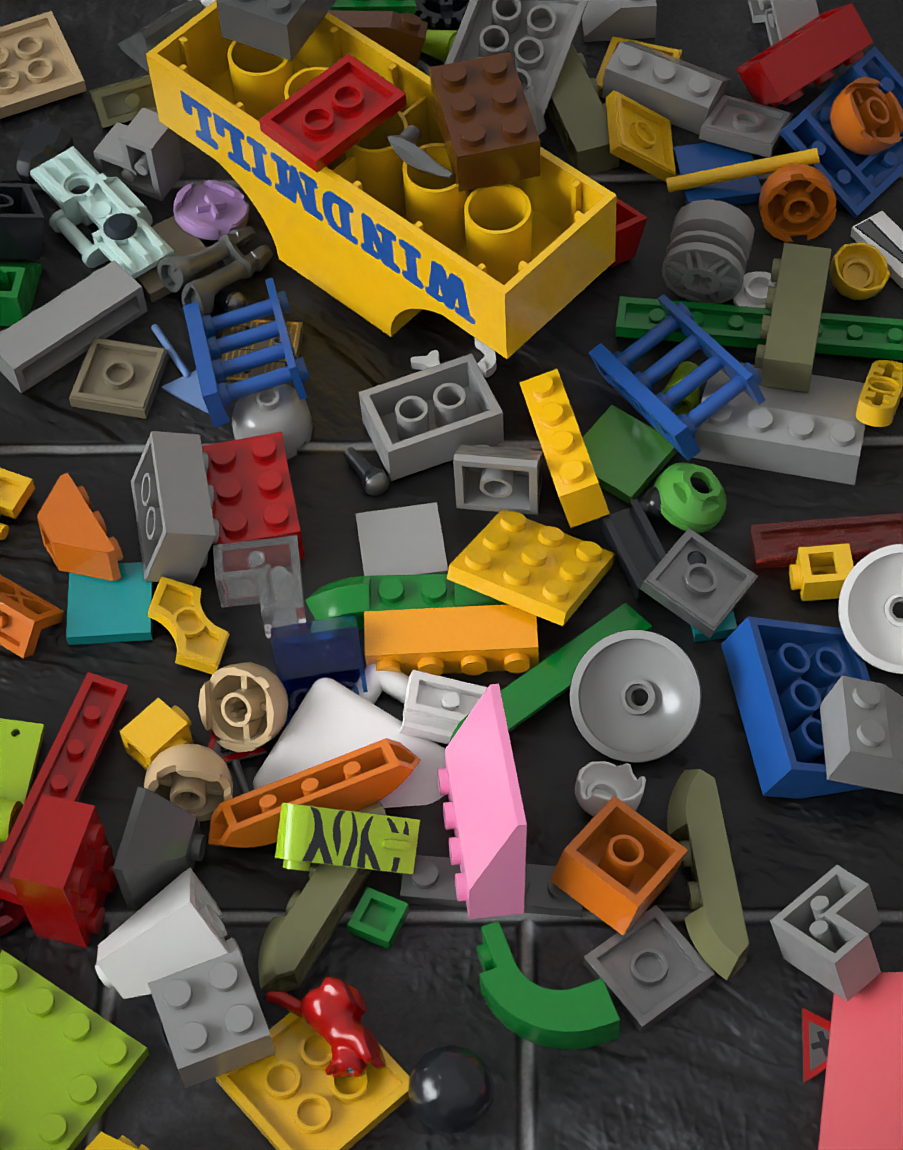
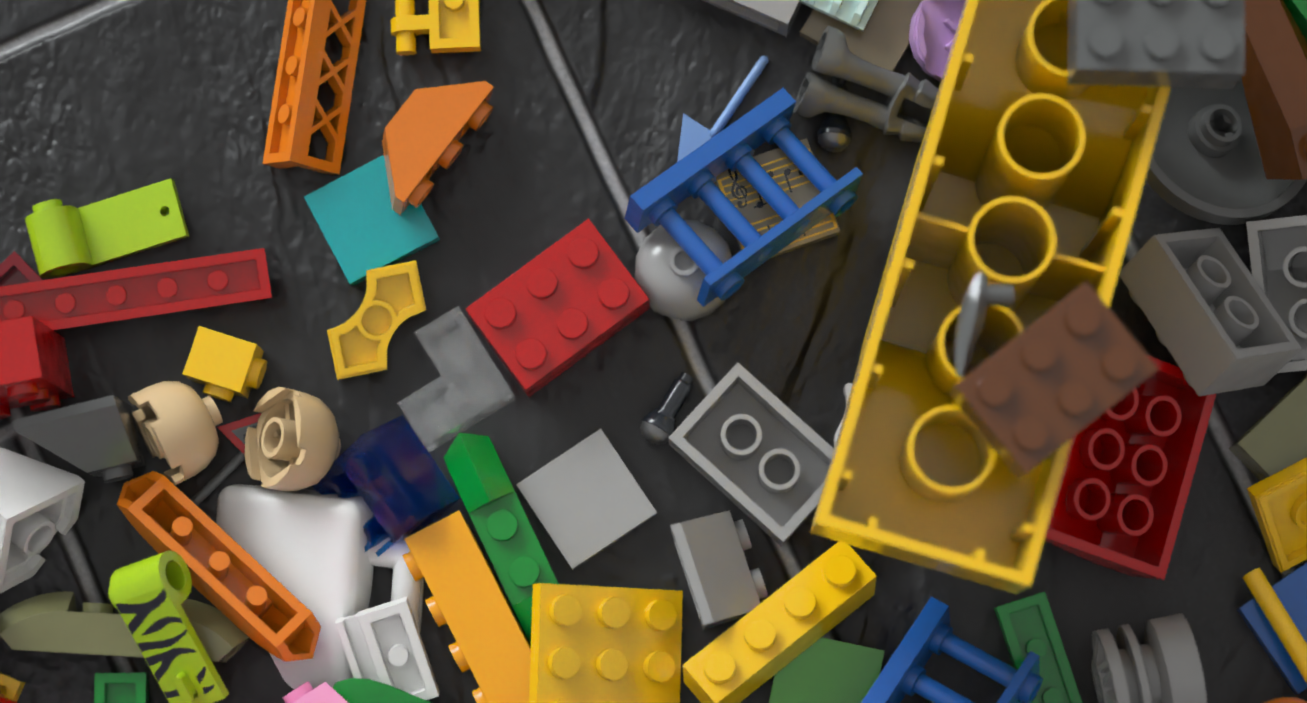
camera: 65 degrees right, 25 degrees up
(119, 378) = (672, 59): dark tan tile -> none
(173, 507) = (496, 232): light grey brick -> none
(332, 112) = (991, 185): red plate -> none

